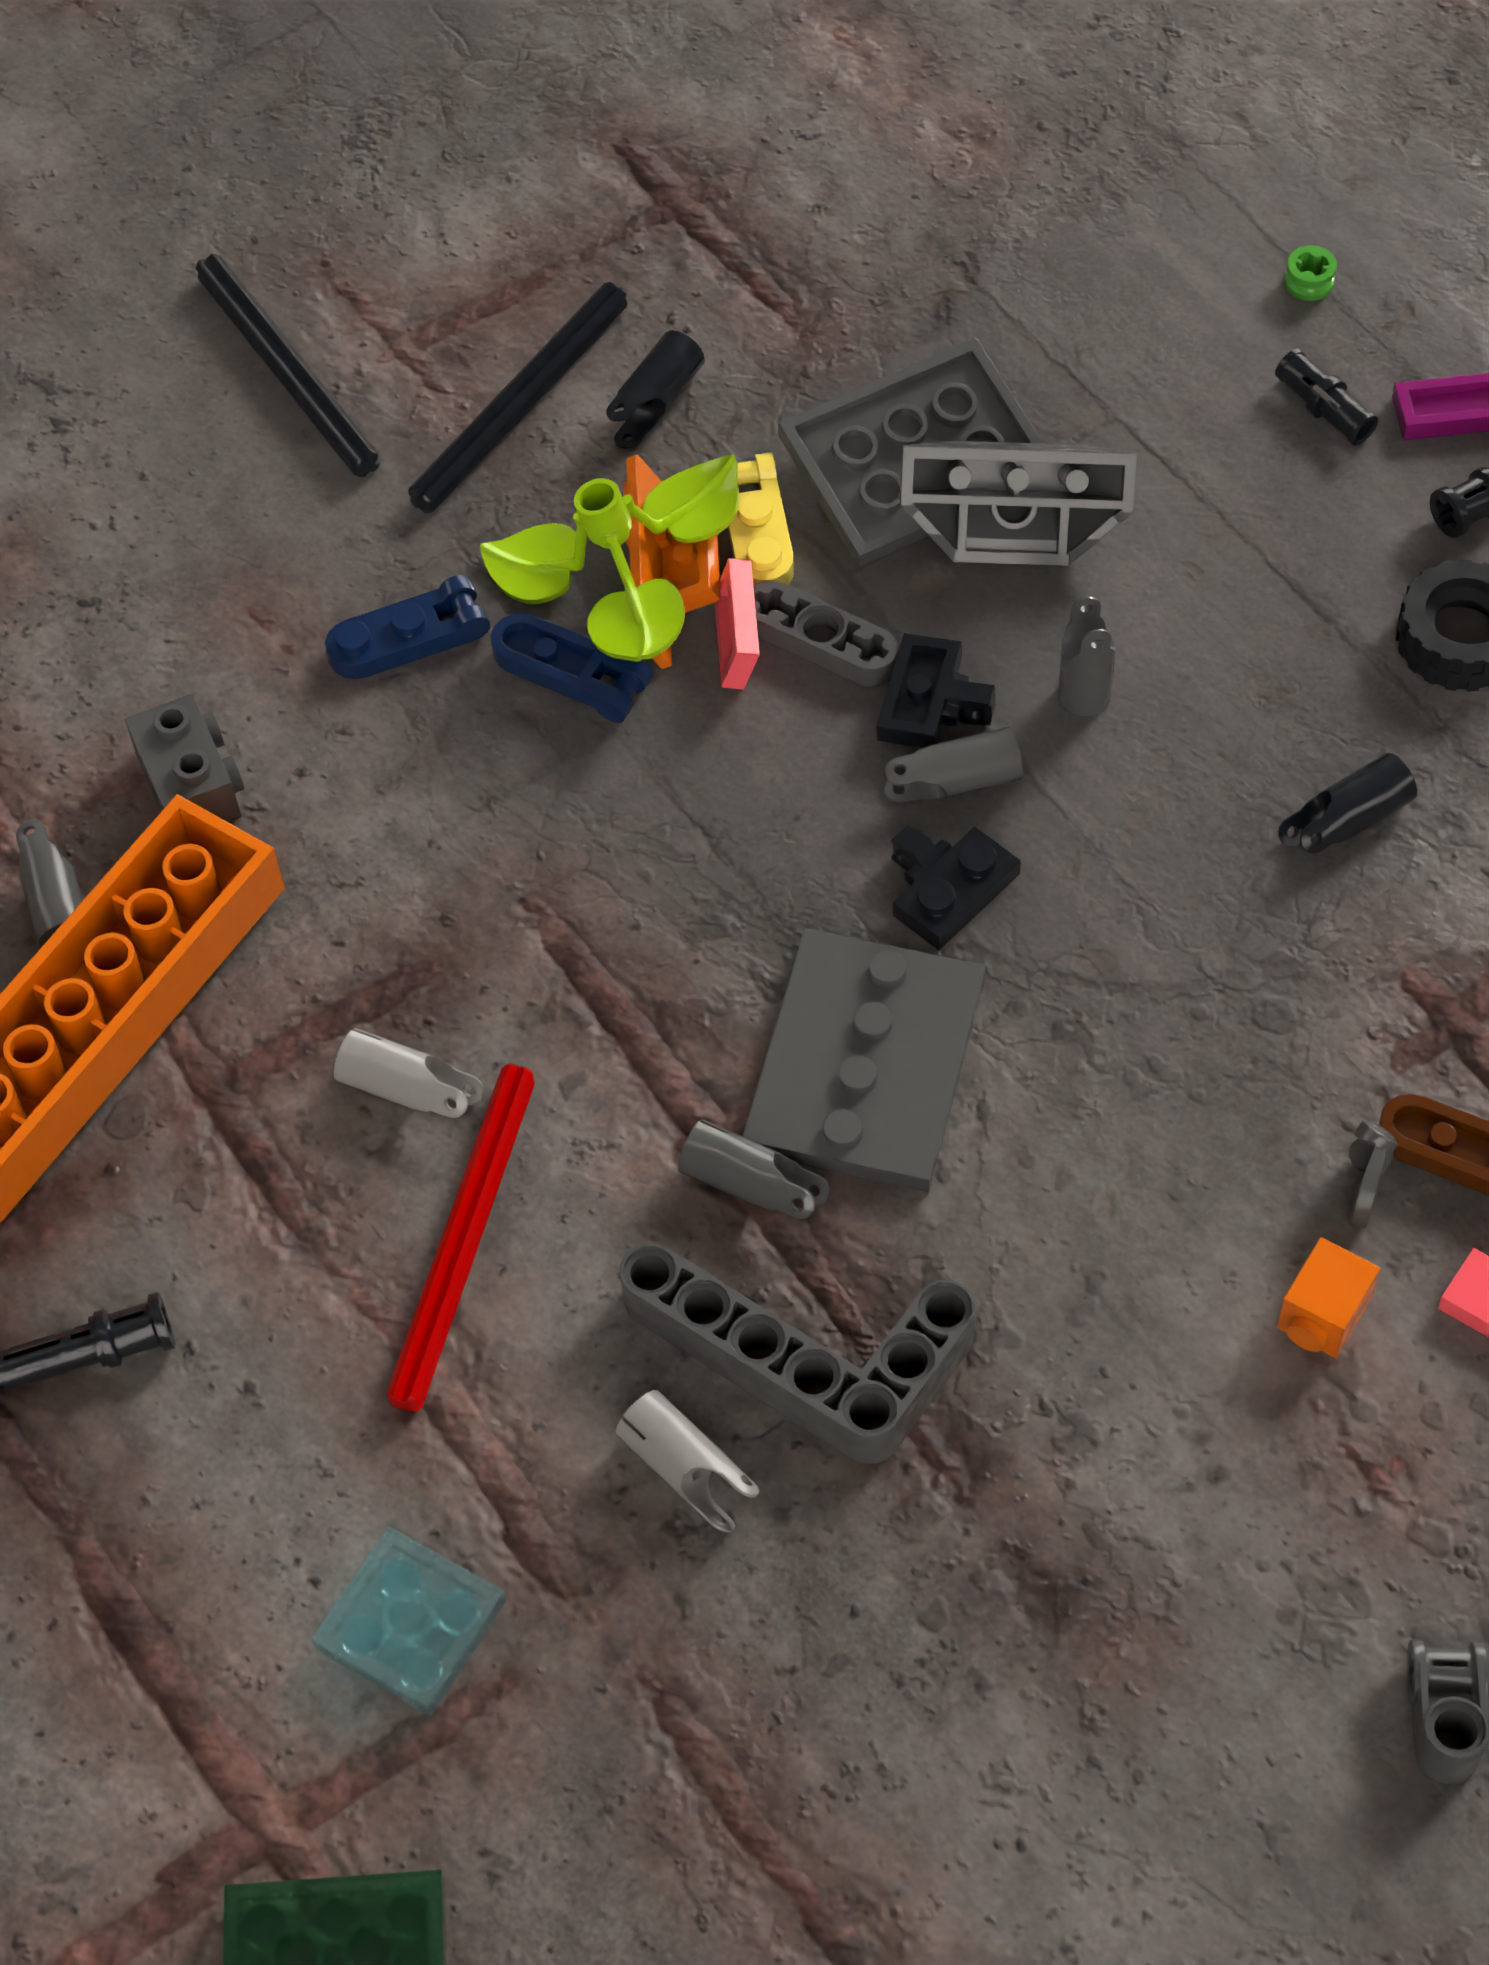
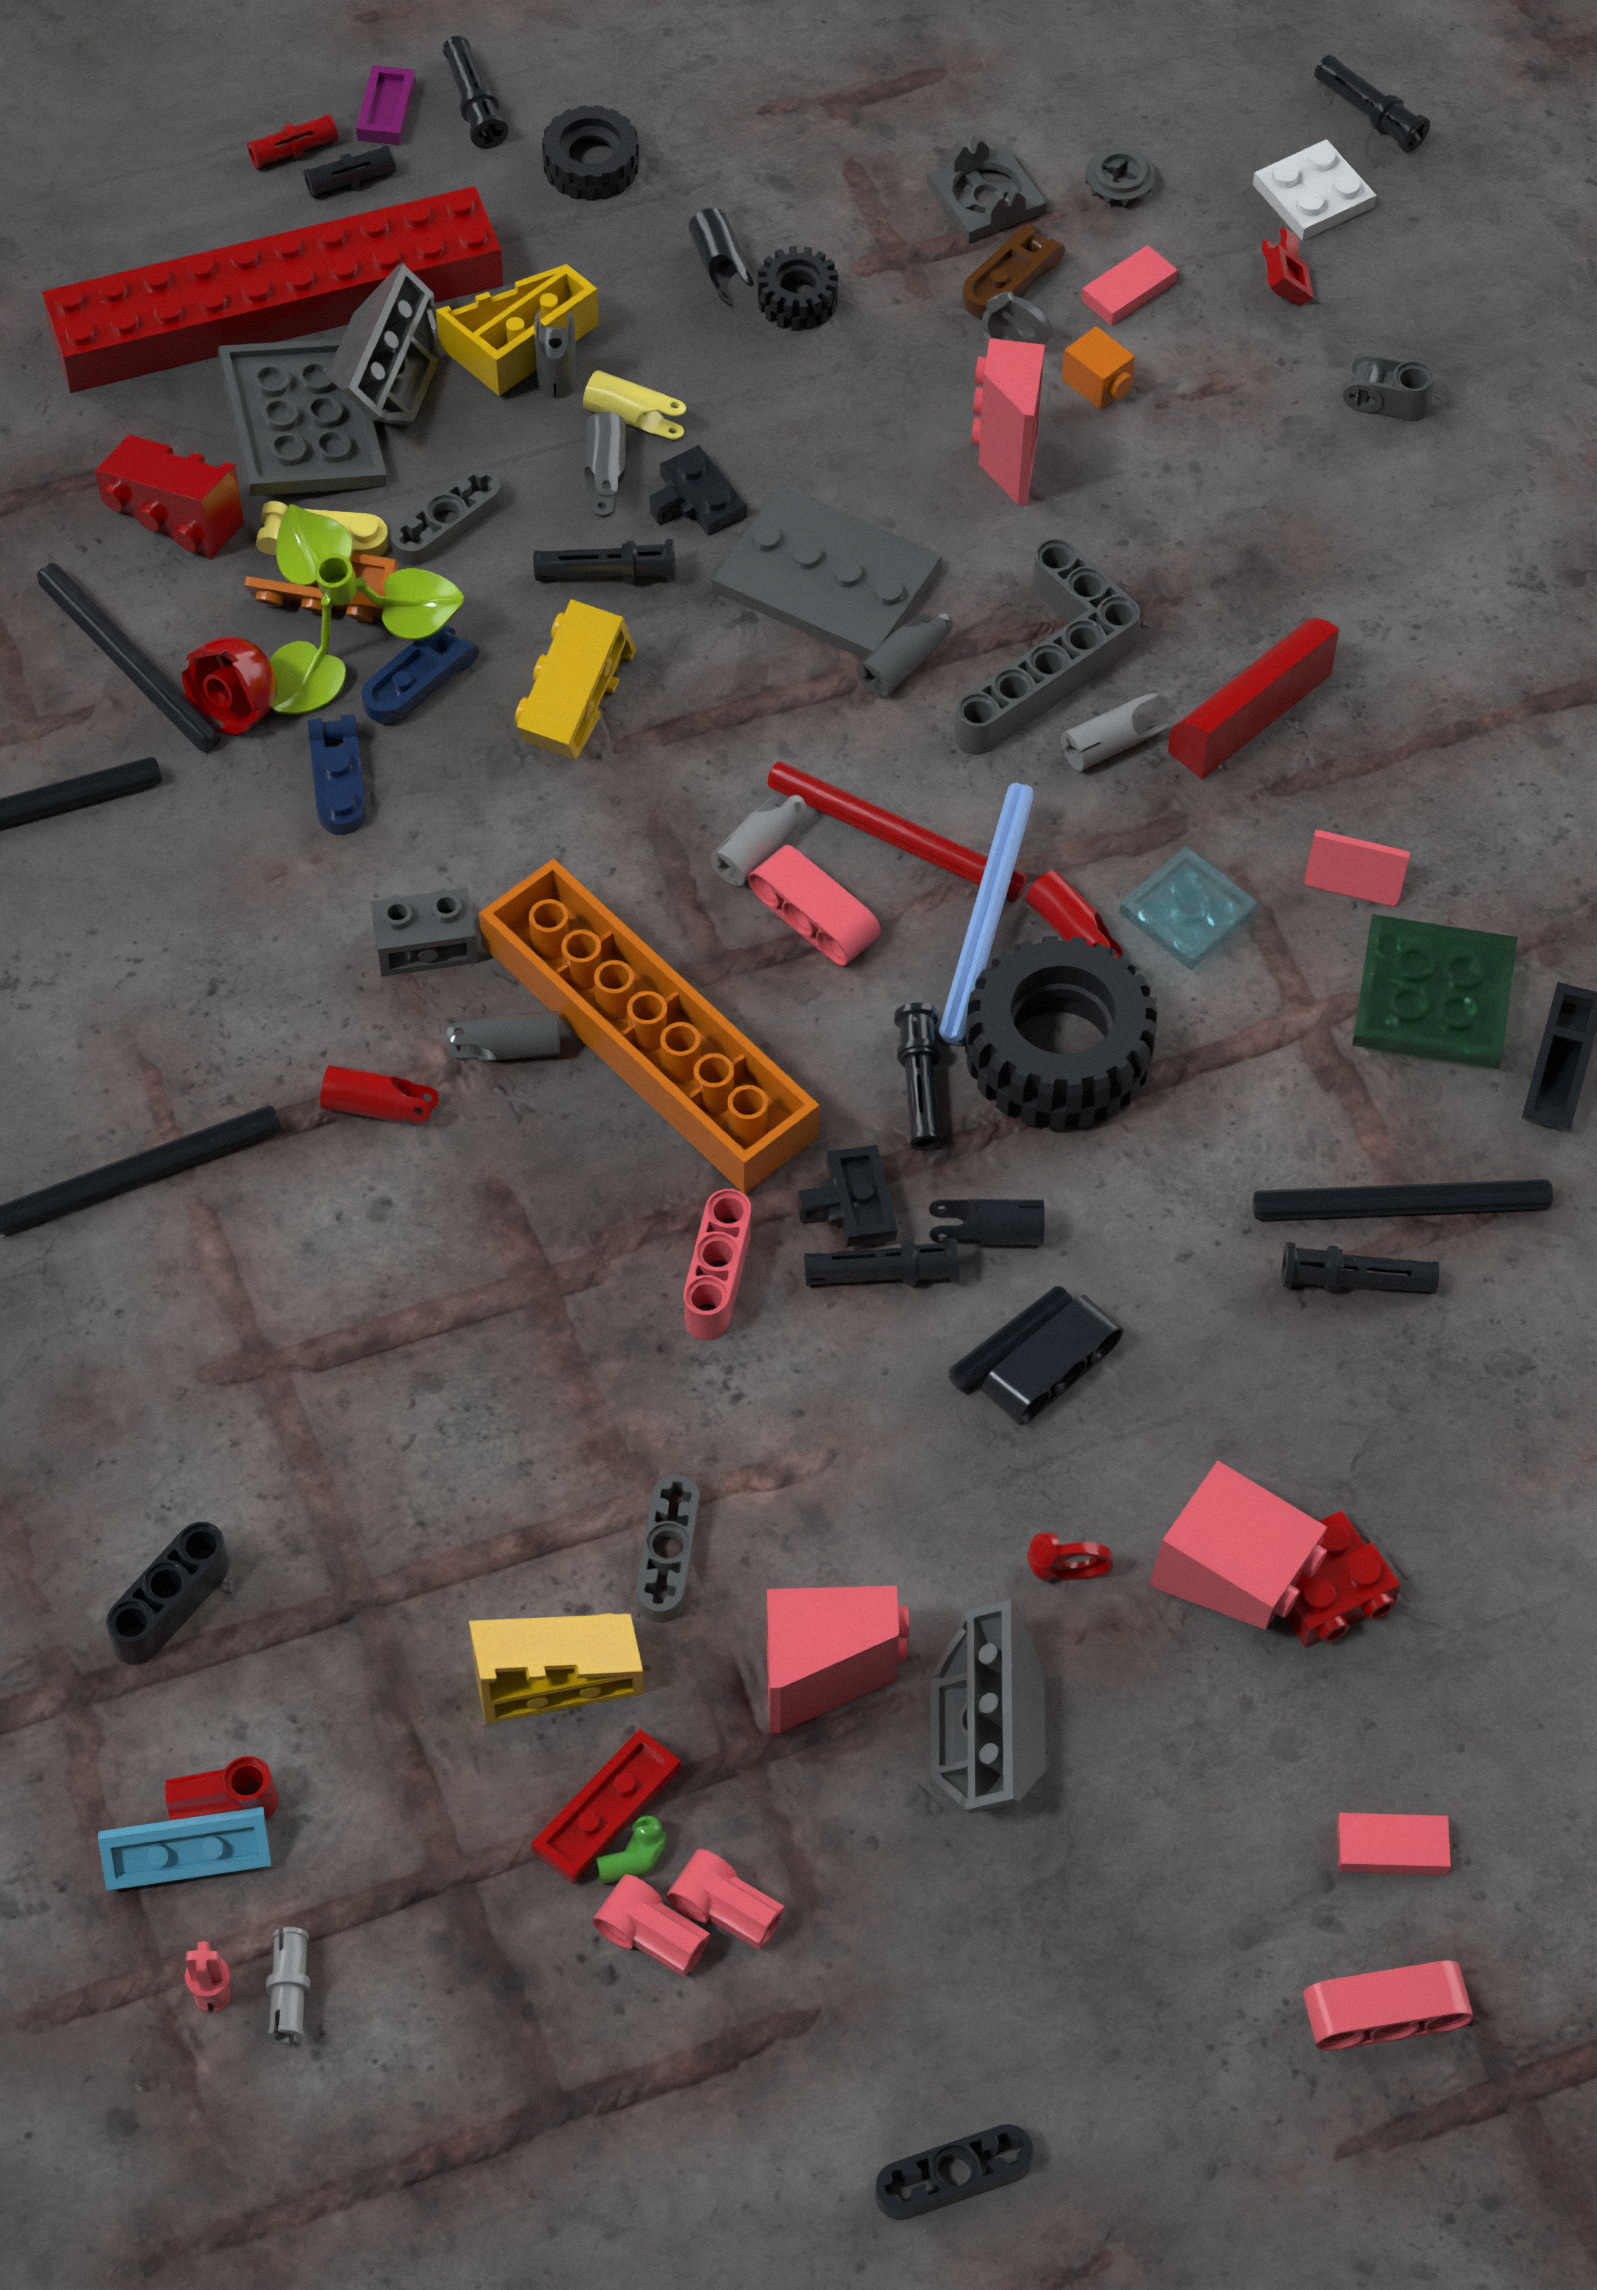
camera: 80 degrees left, 0 degrees up
(107, 1422) = (1067, 980): none -> black tyre
(311, 1165) = (814, 905): none -> coral beam
(334, 1362) = (986, 910): none -> light blue axle
(357, 1476) = (1069, 912): none -> red piece
(490, 489) = (230, 682): none -> red cylinder
(528, 1838) = (1356, 868): none -> coral slope
(587, 812) = (573, 679): none -> yellow wedge
(654, 386) = (161, 563): black piece -> none
(736, 625) = (438, 554): coral tile -> none
(746, 363) = (173, 493): none -> red wedge
(788, 1629) = (1255, 697): none -> red brick
(804, 852) = (629, 561): none -> black pin
(930, 693) = (532, 463): black hinge -> none
(1059, 771) = (634, 403): none -> light yellow piece
(1105, 376) = (266, 288): none -> red brick
(1146, 1187) = (1008, 413): none -> coral slope
(1157, 630) = (497, 332): none -> yellow wedge
(1313, 261) = (226, 159): bright green bush -> none
(1337, 877) = (795, 269): none -> black tyre
(1374, 351) = (317, 131): none -> red pin

